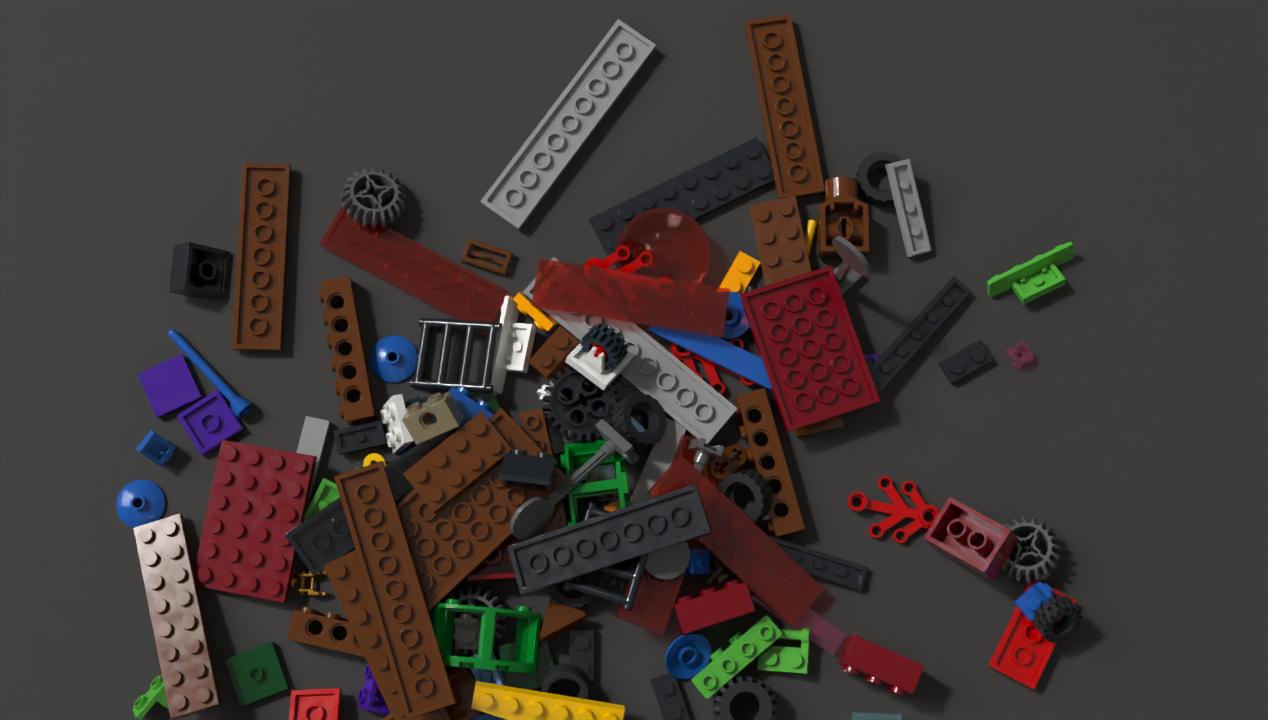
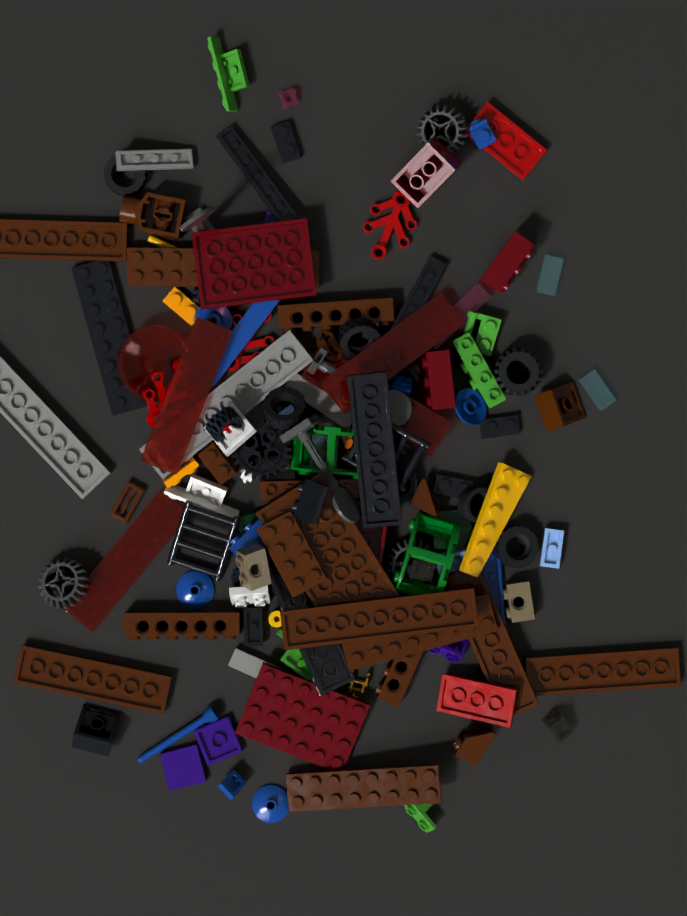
camera: 75 degrees left, 10 degrees up
(257, 674) = (418, 734): dark green plate -> none
(1068, 621) = (499, 120): black tyre -> none

